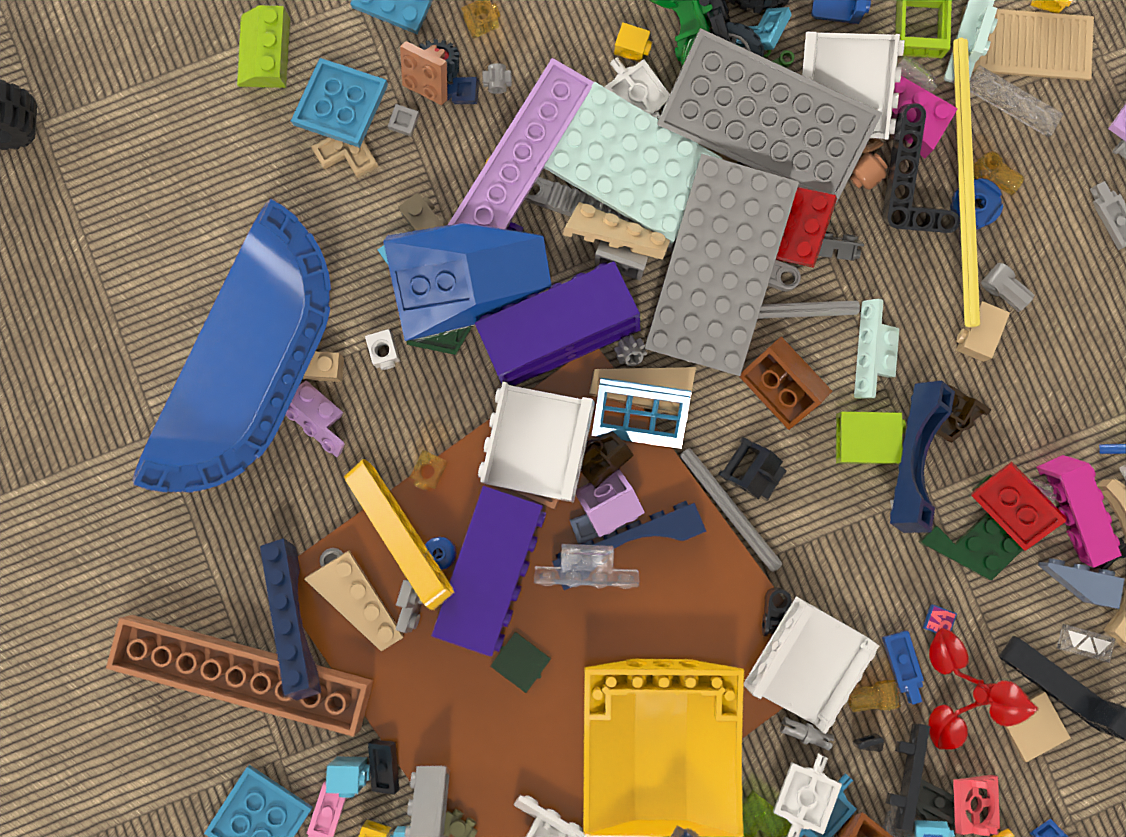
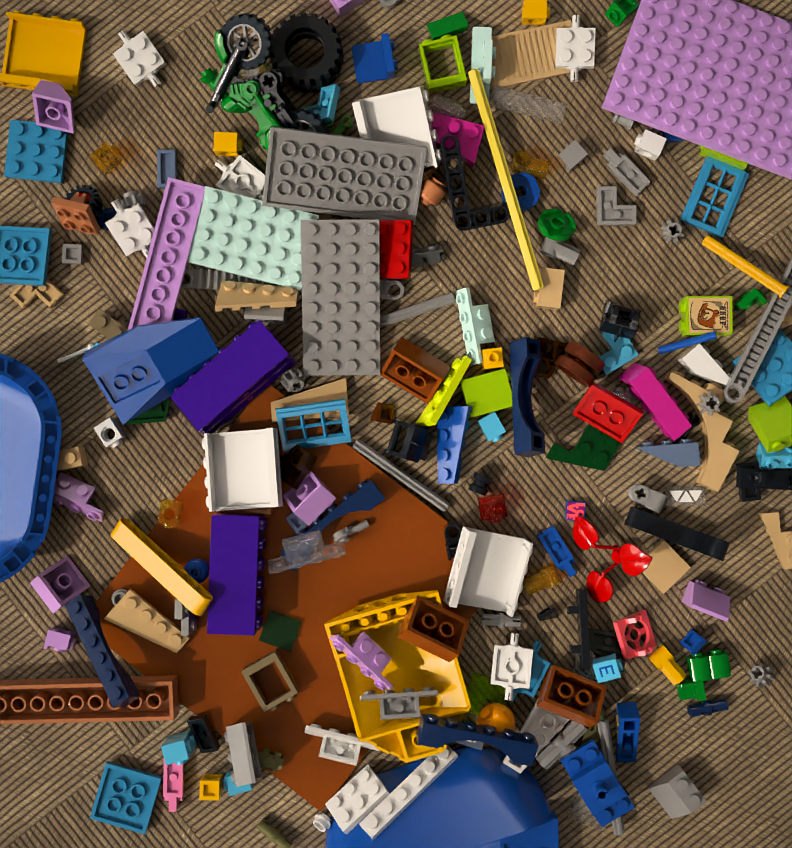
camera: 20 degrees left, 5 degrees up
(239, 590) = (60, 639): none -> lavender brick
(260, 519) = (59, 584): none -> lavender slope
(350, 243) = (63, 359): none -> white hinge
(486, 108) = (131, 228): none -> white plate
(487, 696) = (261, 663): none -> dark tan window
(550, 46) = (166, 167): none -> sand blue tile
(627, 727) = (367, 656): none -> lavender bracket
(640, 561) = (343, 534): none -> light grey plate
(650, 804) = (399, 705): none -> light grey bracket
(725, 718) = (434, 629): none -> dark orange slope
(730, 425) = (383, 413): none -> reddish brown slope
(809, 476) = (450, 442): none -> blue wing
(812, 425) = (444, 393): none -> neon yellow wing
(829, 549) = (480, 484): none -> black wheel
(837, 585) = (492, 508): none -> clear red brick
(863, 482) = (491, 427): none -> medium azure brick
(888, 397) = (492, 358): none -> yellow brick
(998, 434) = (579, 363): none -> copper wheel
(1013, 255) = (556, 224): none -> green tile
(1040, 632) = (649, 499): none -> light grey piece
(1051, 432) = (620, 353): none -> medium azure plate
(1053, 397) = (619, 326): none -> black piece
(1056, 177) = (572, 155): none -> light grey panel
(1081, 257) = (609, 212): none -> light grey plate
(1083, 787) = (706, 600): none -> lavender slope
(1091, 50) = (575, 48): none -> white plate

